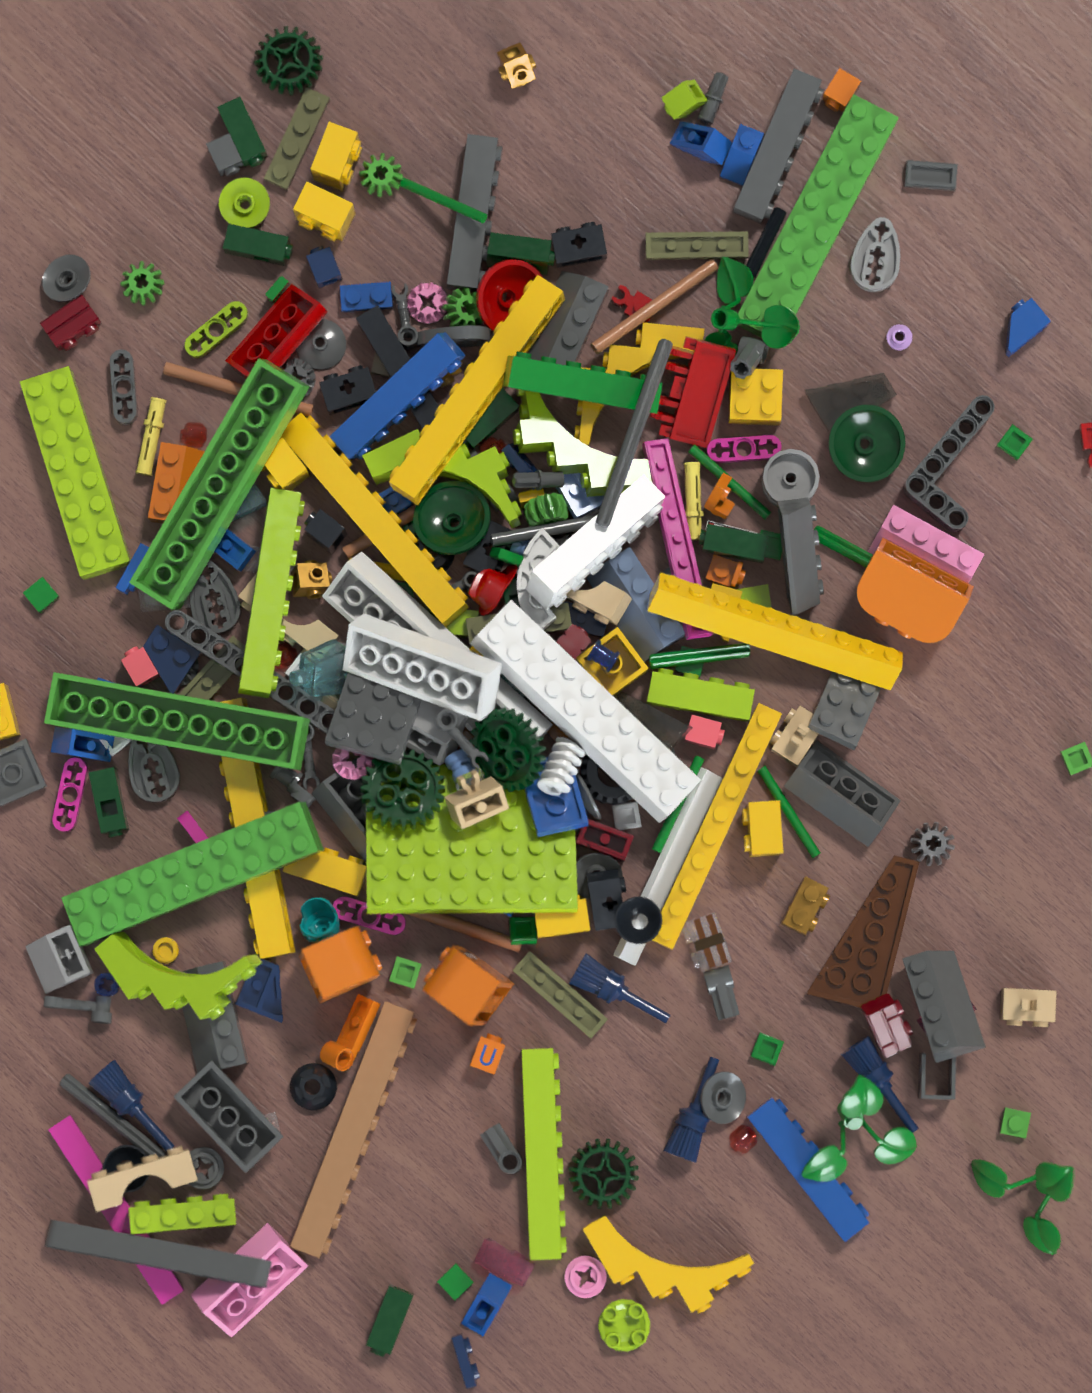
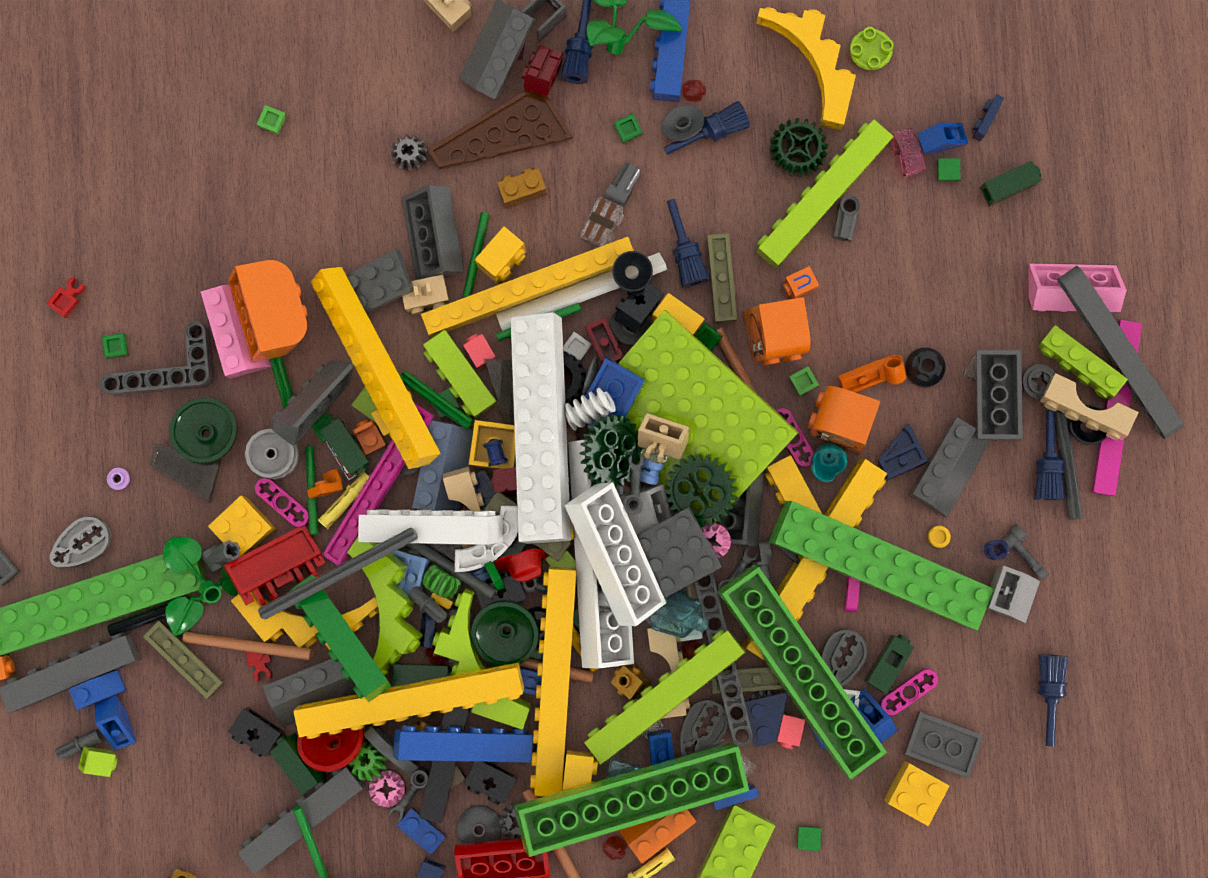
camera: 140 degrees left, 0 degrees up
(141, 976) = (970, 533): lime arch -> none
(325, 531) = (592, 704): black brick -> none
(352, 1130) = (925, 317): medium nougat brick -> none
(573, 1280) = (871, 90): bright pink gear -> none
(1024, 324) = (34, 411): blue slope -> none

